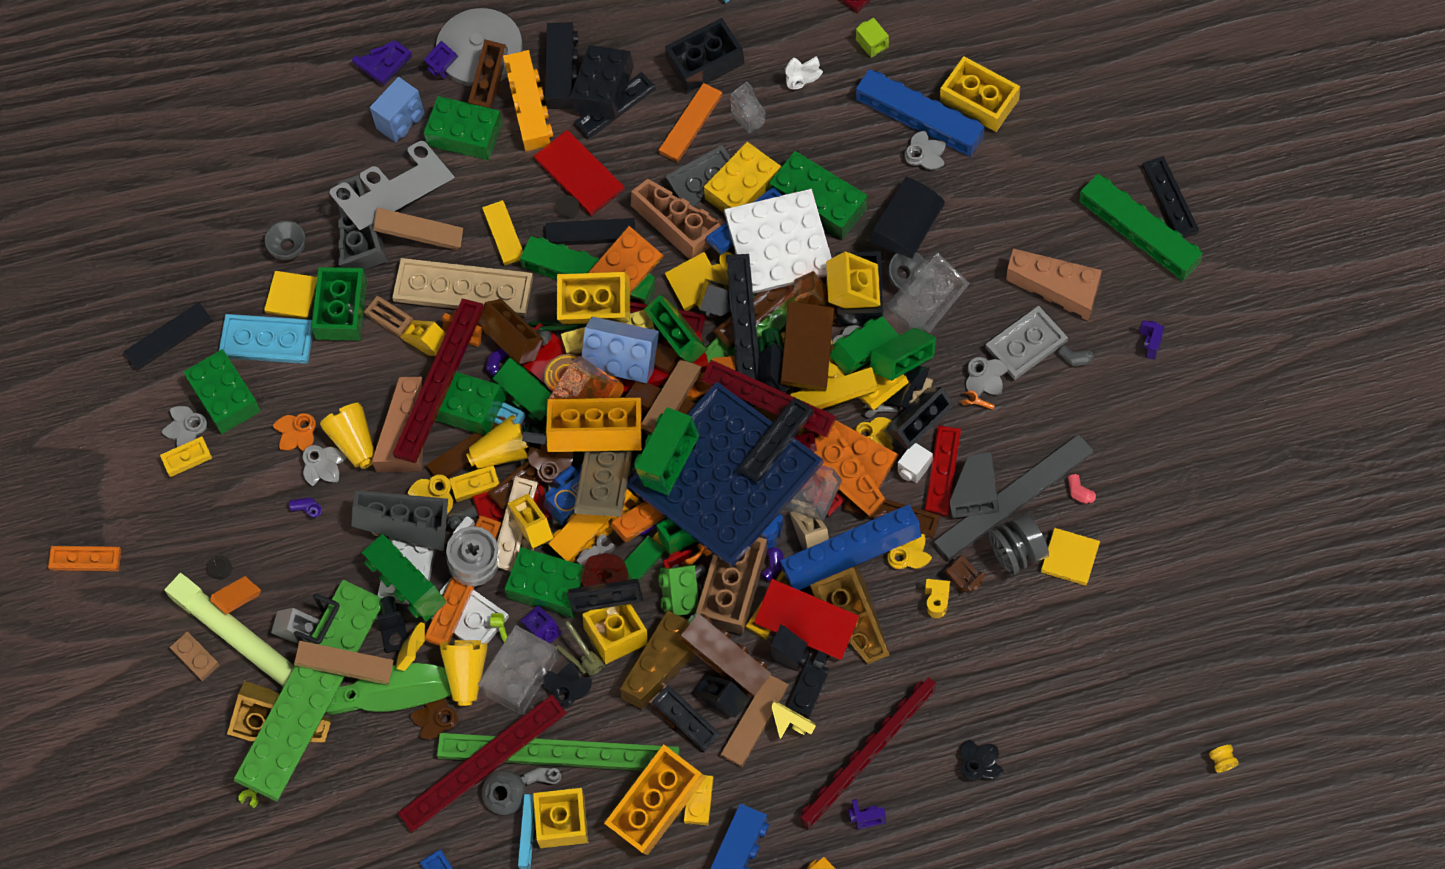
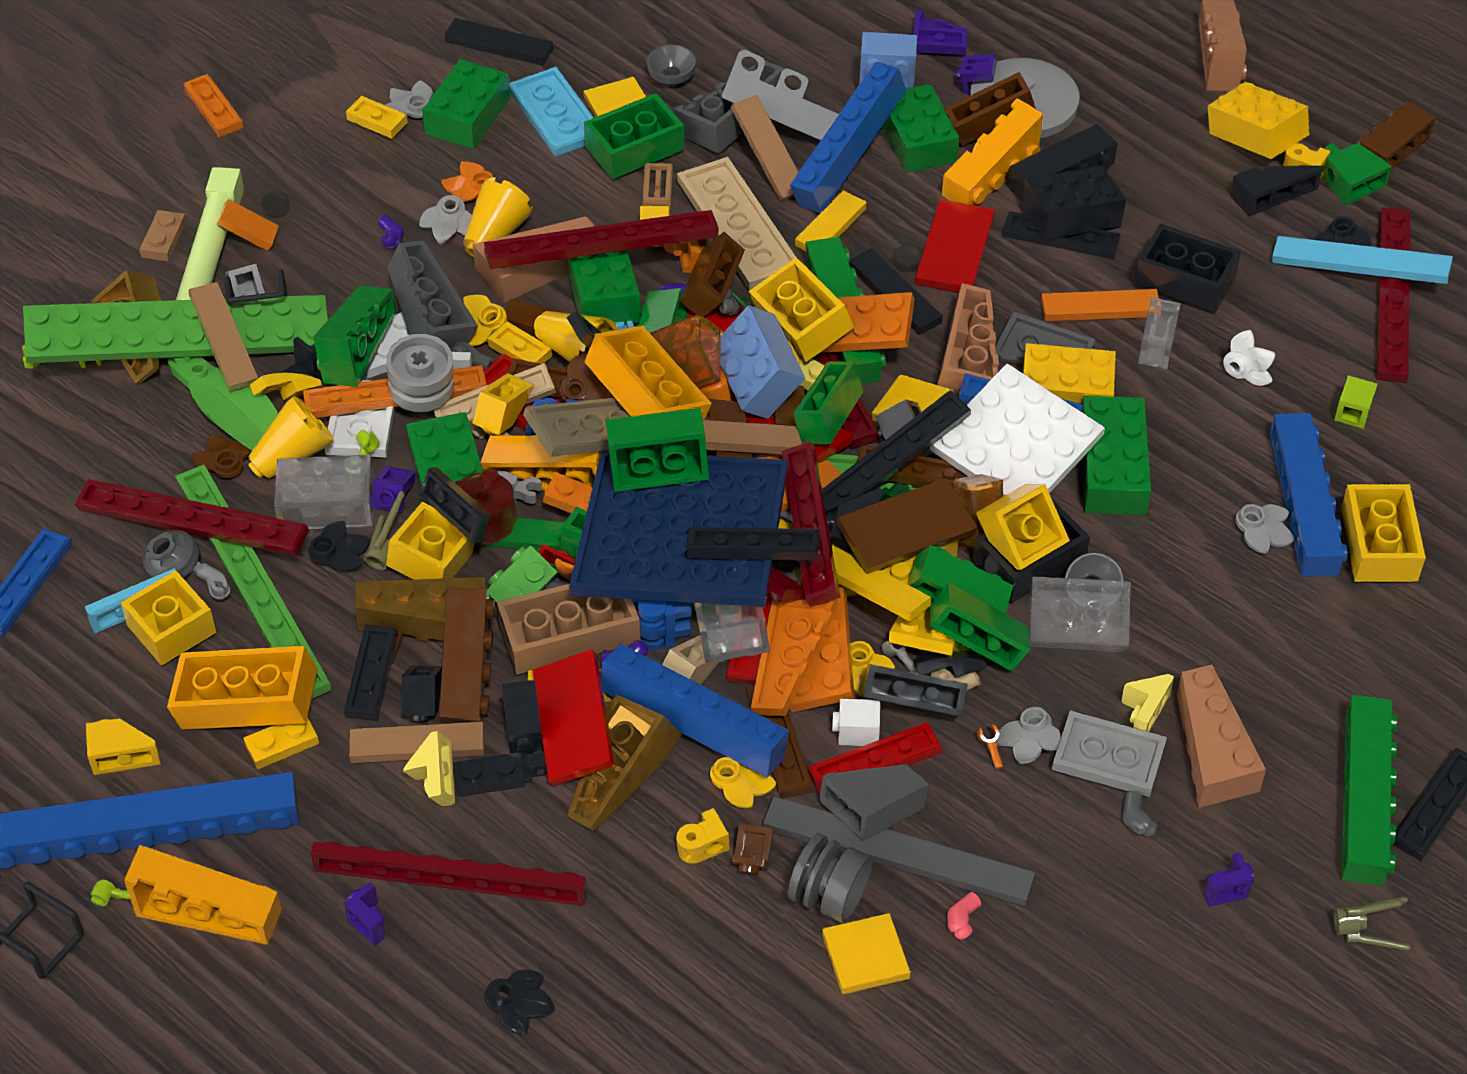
camera: 50 degrees right, 15 degrees down
(451, 175) = (848, 137): none -> blue brick
(907, 218) = (1158, 544): black slope -> none
(1008, 297) = (1147, 699): none -> light yellow slope
(1215, 295) = (1353, 919): none -> olive plant

